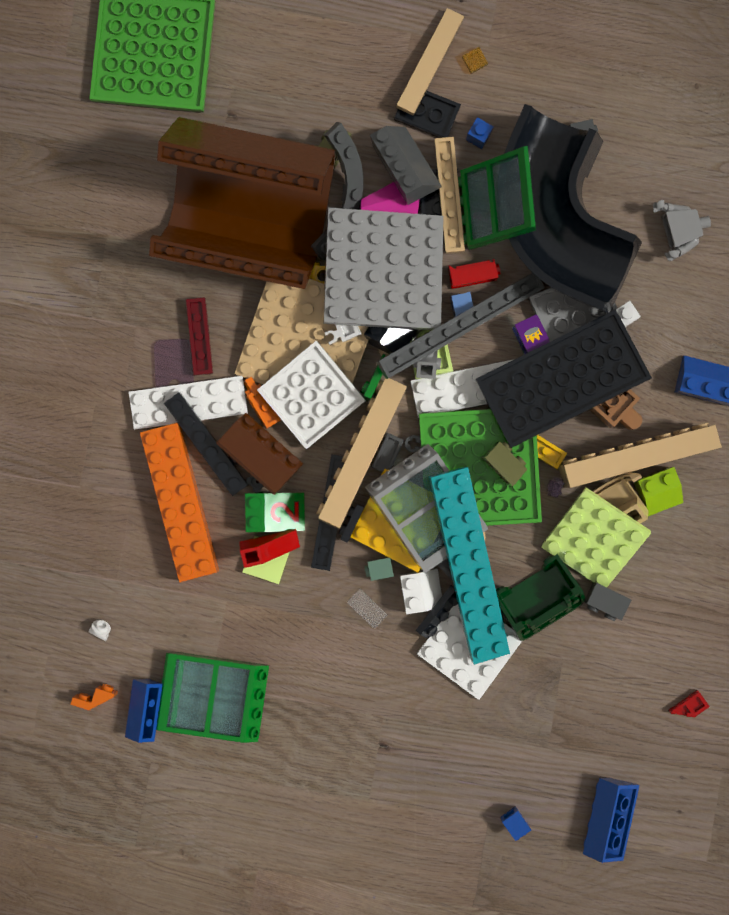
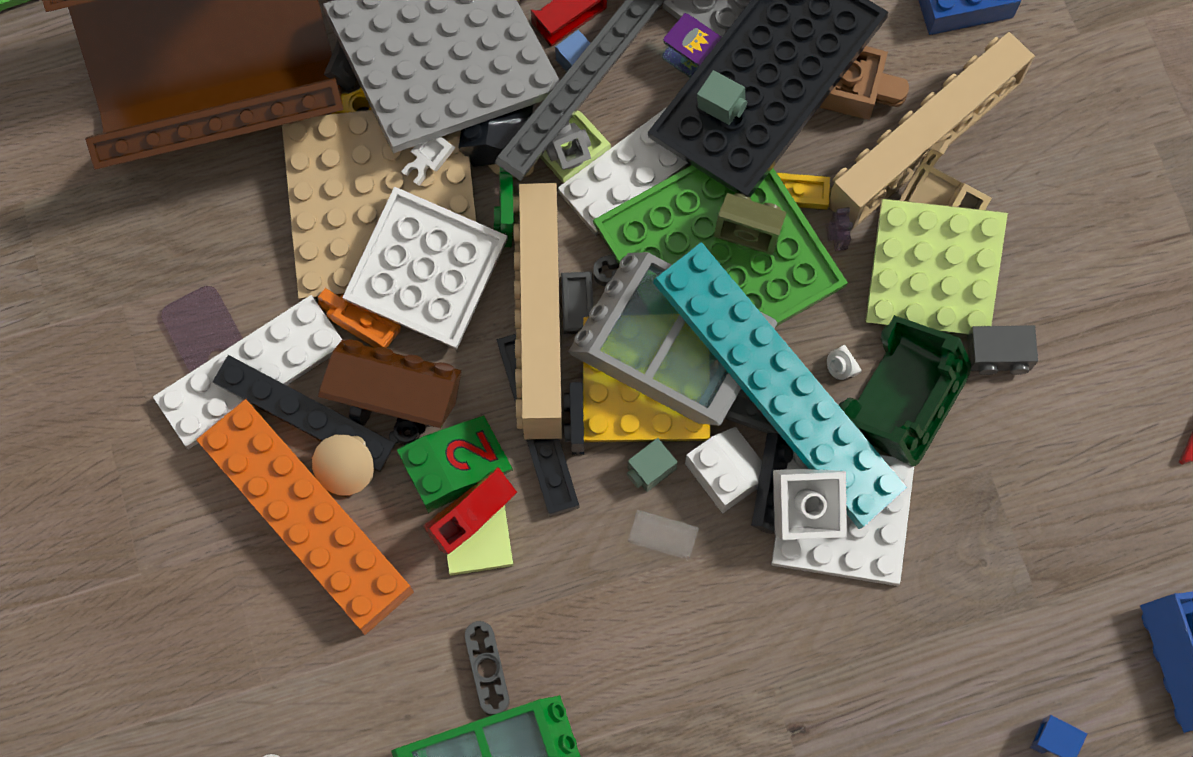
camera: 30 degrees left, 15 degrees down
(199, 336) = (223, 272): dark red plate -> none
(213, 484) = (343, 464): none -> tan dish
(246, 619) = (490, 642): none -> dark grey beam
(450, 639) = (809, 504): none -> white slope
(514, 563) = (842, 364): none -> white plate
(527, 383) = (722, 97): none -> sand green brick
(660, 490) = (987, 162): lime slope -> none

